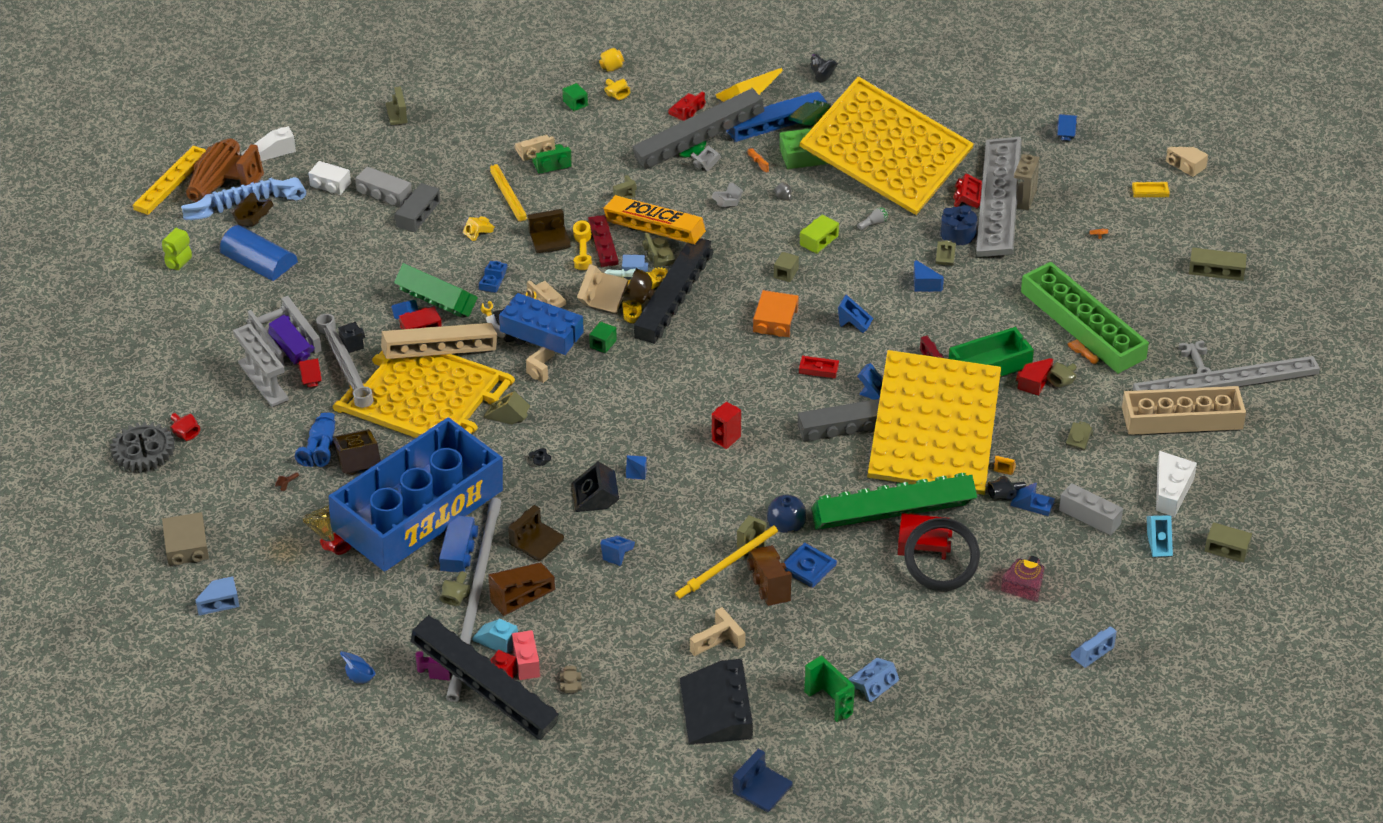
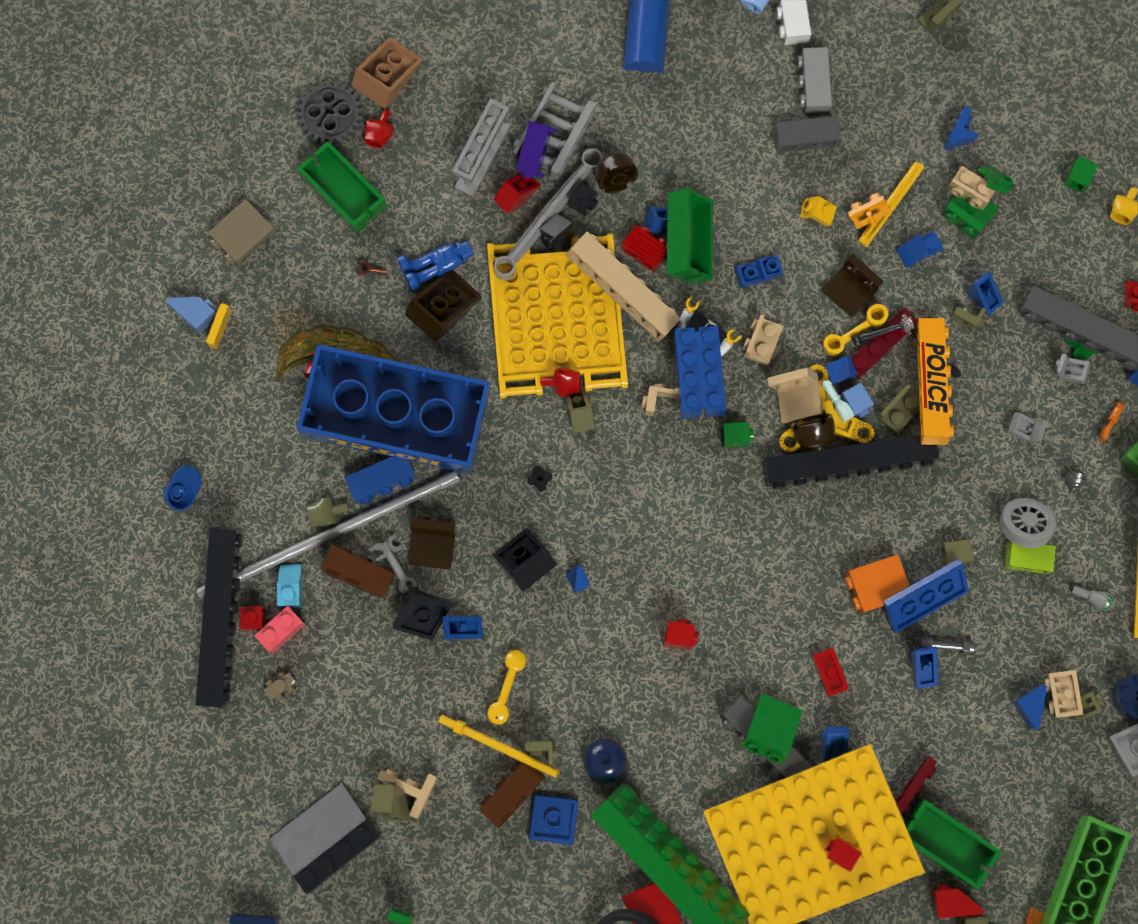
camera: 55 degrees right, 35 degrees up
(145, 402) = (386, 72): none -> medium nougat slope
(209, 461) = (342, 187): none -> green piece
(246, 586) = (218, 326): none -> yellow tile
(348, 308) = (615, 172): none -> dark brown cylinder
(363, 360) = (557, 233): none -> black brick
(481, 404) = (564, 382): none -> red piece
(489, 137) = (960, 134): none -> blue slope
(505, 199) = (869, 212): none -> light orange hips
(546, 131) = (997, 181): none -> green plate
(551, 566) = (387, 550): none -> light grey bar
(553, 193) = (919, 249): none -> blue slope
(587, 559) = (422, 614): none -> black tile
(602, 215) = (905, 324): none -> black piece
(605, 262) = (841, 370): none -> blue slope
(612, 173) = (985, 293): none -> blue slope
(699, 554) = (515, 662): none -> yellow piece
(720, 640) = (390, 802): none -> olive slope
(794, 221) = (1025, 527): none -> light grey wheel
(804, 290) = (926, 596): none -> blue tile
(840, 403) = (772, 729): none -> green panel
(856, 294) = (964, 646): none -> flat silver bar
(929, 255) = (1064, 693): none -> tan bracket
(955, 397) = (842, 853): none -> red brick

